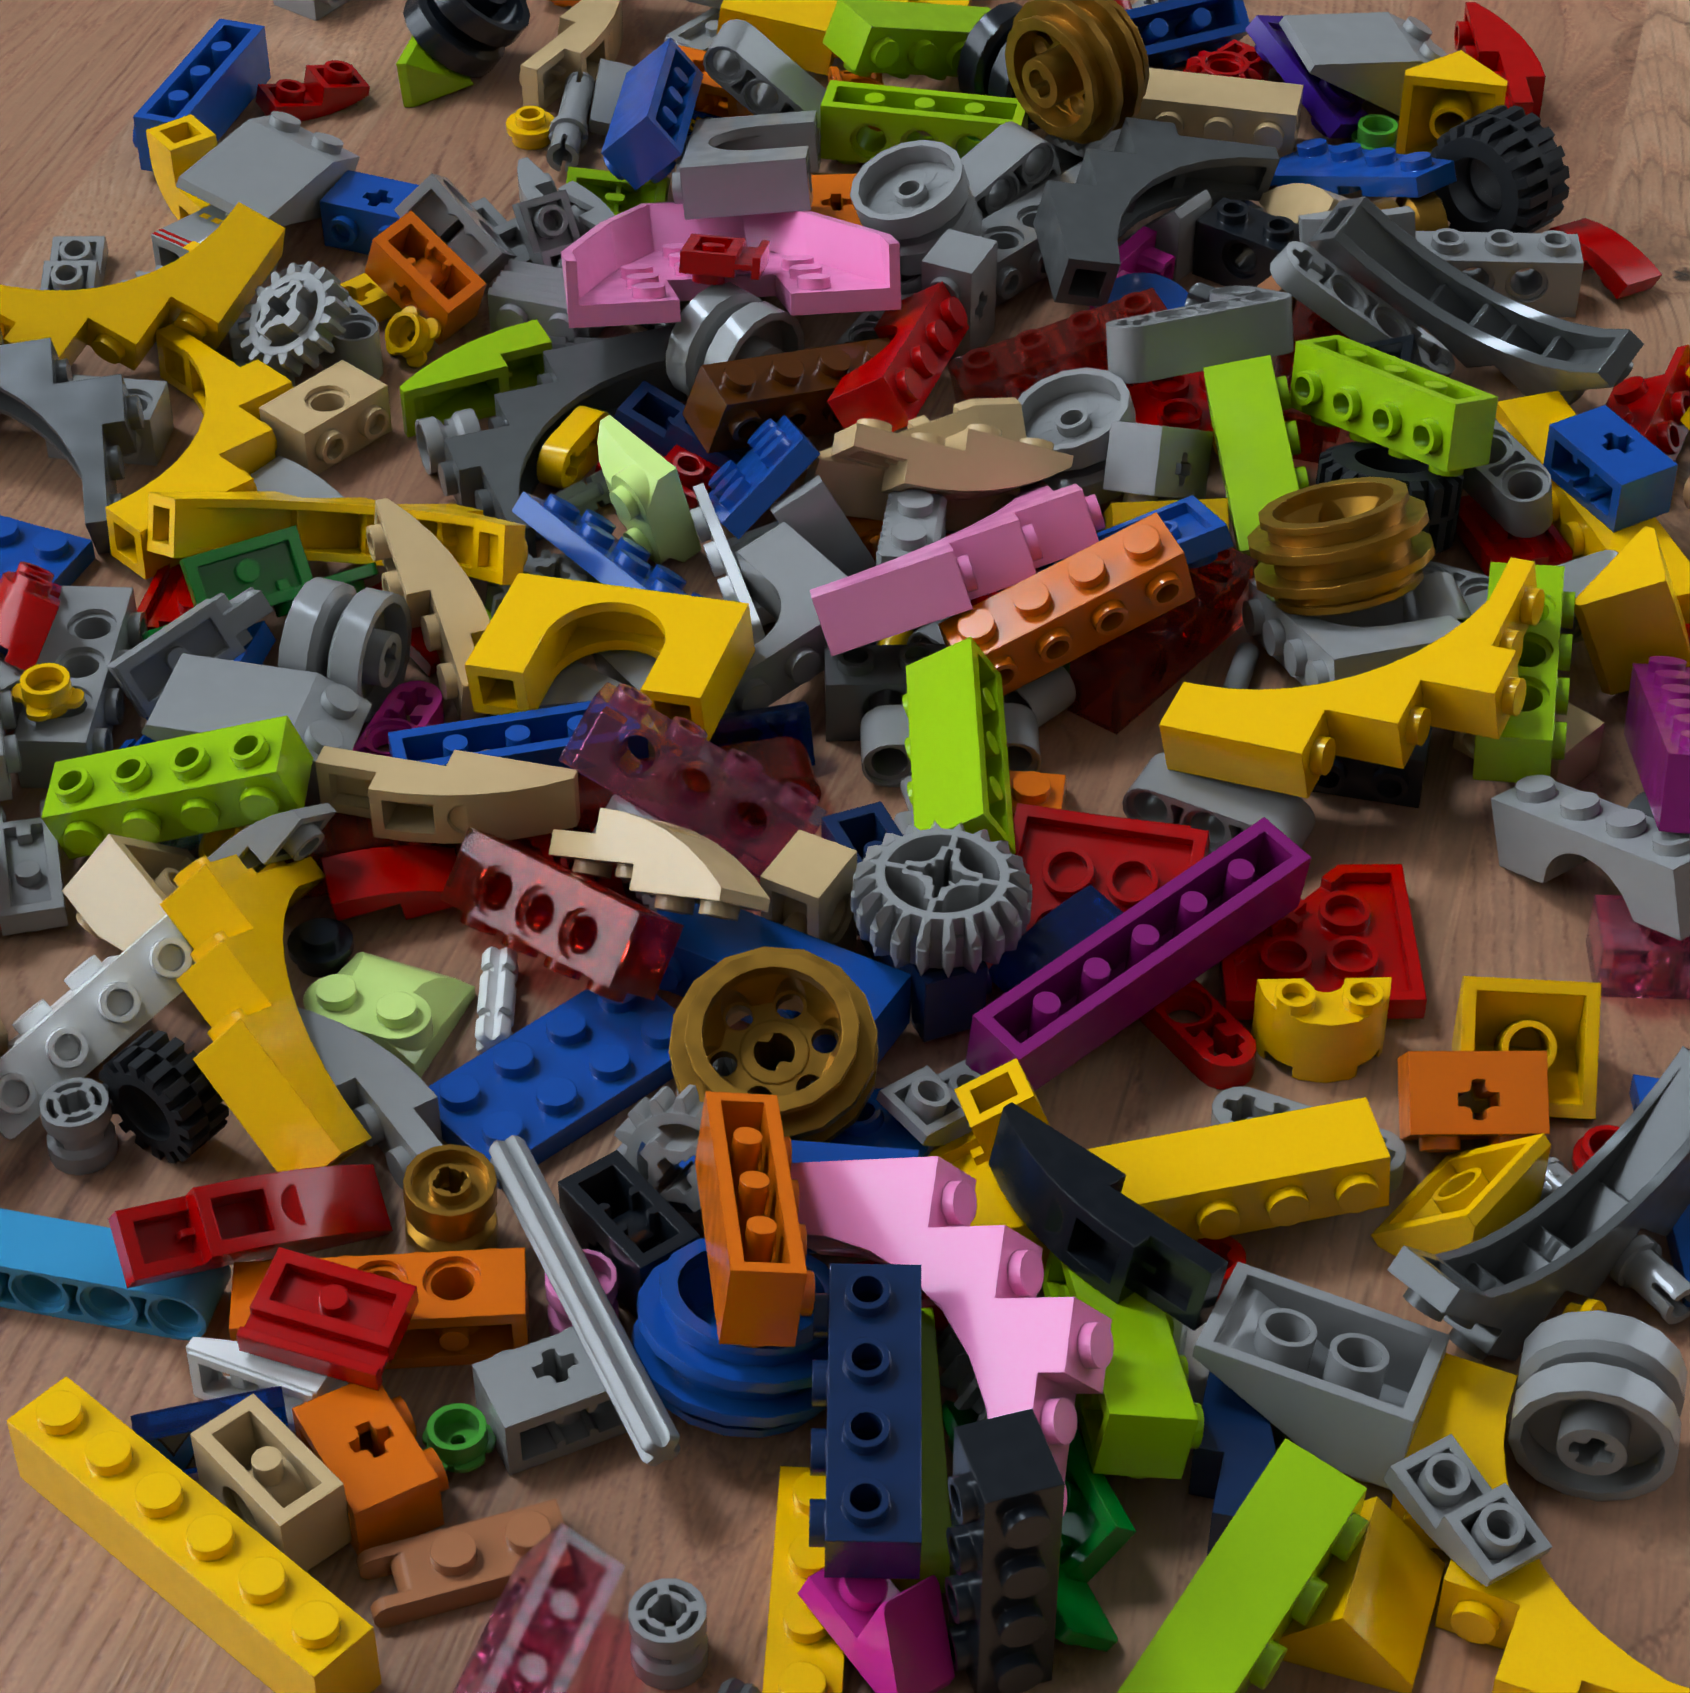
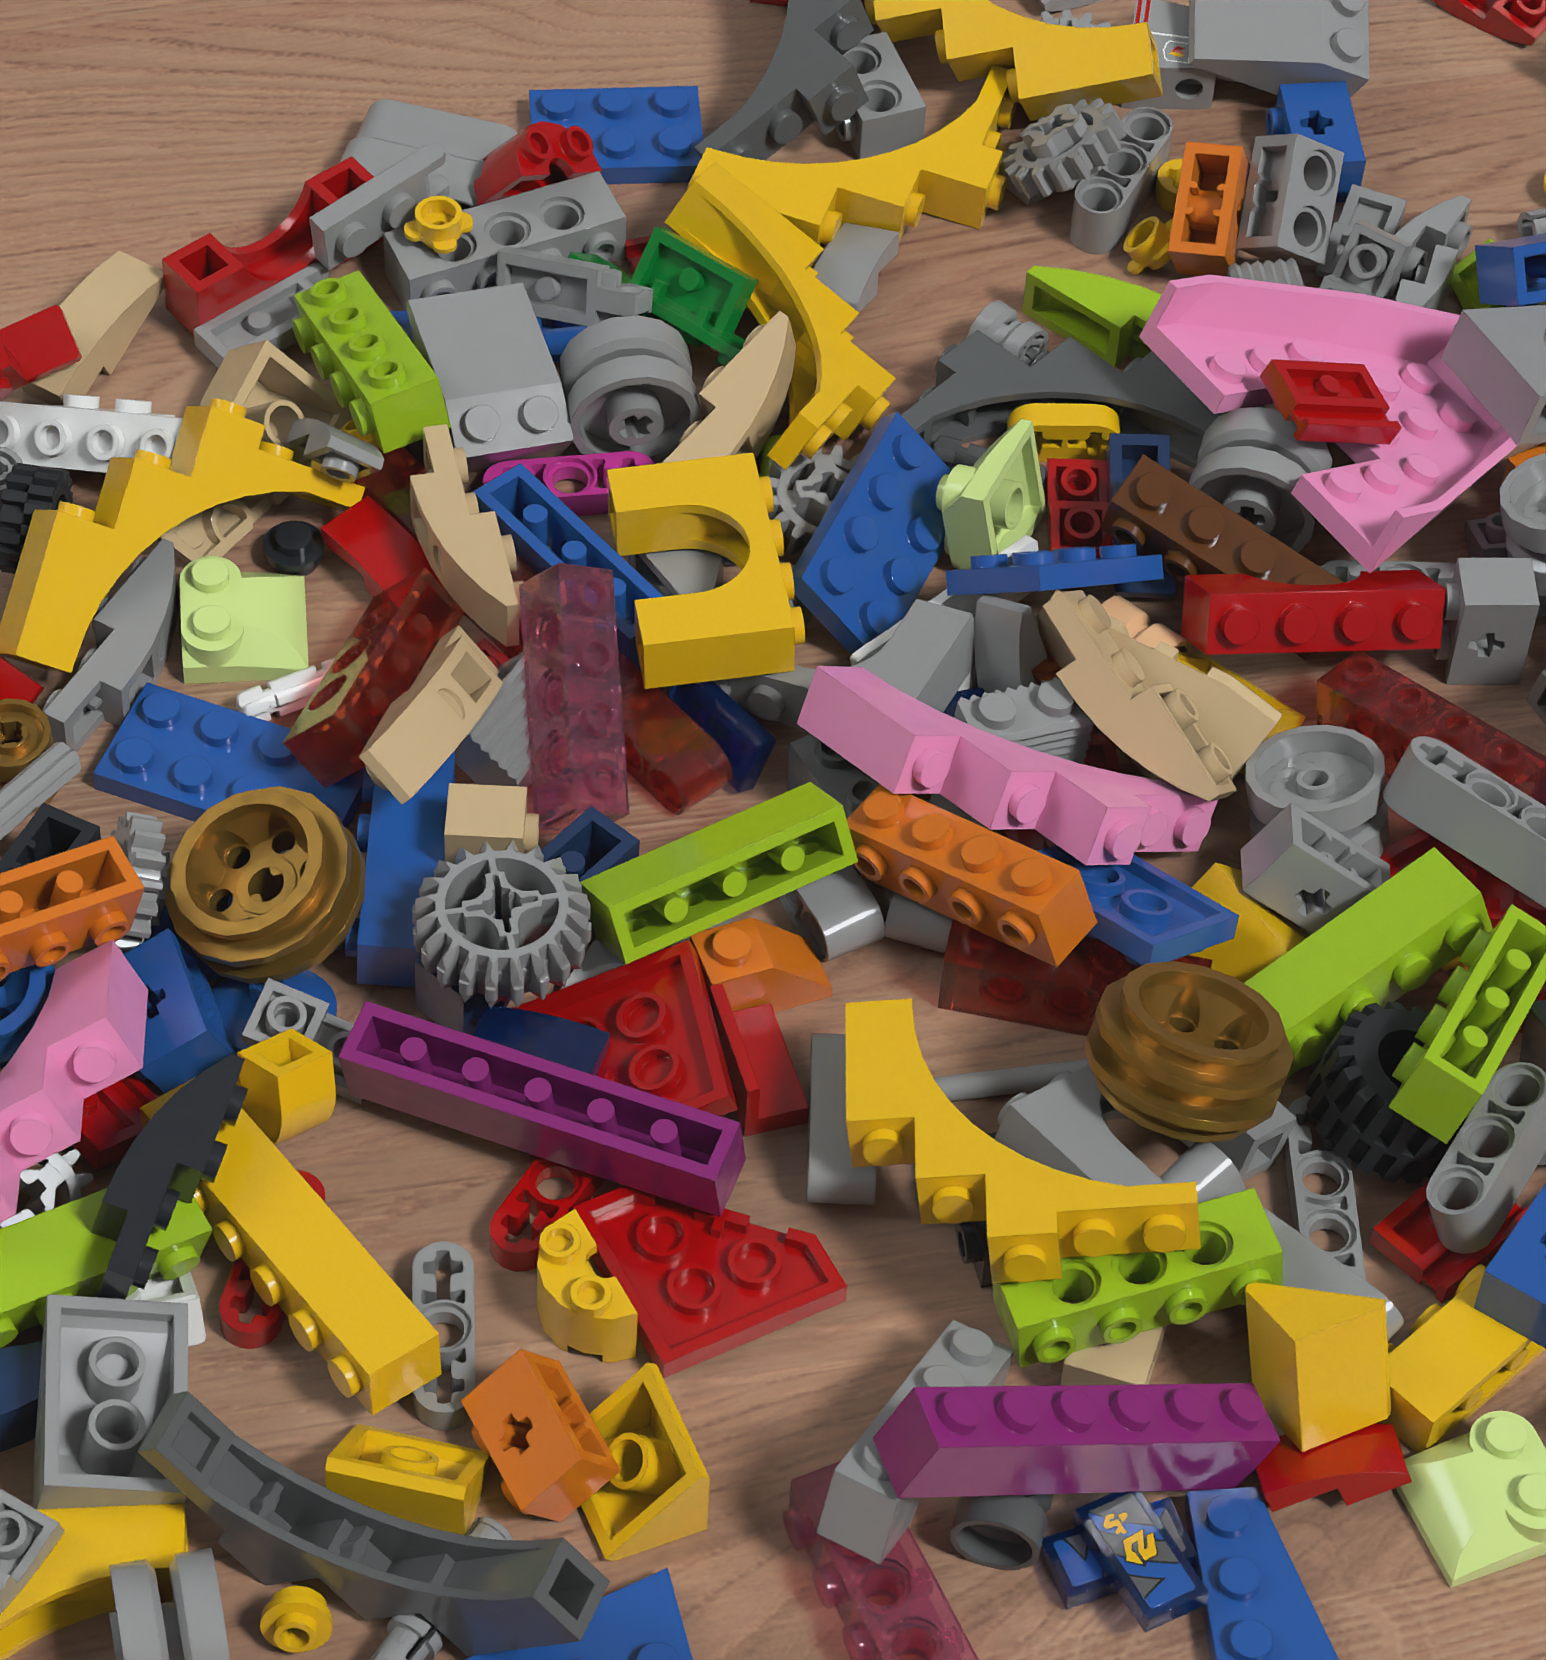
camera: 60 degrees right, 10 degrees up
(329, 416) = (977, 240): tan brick -> none

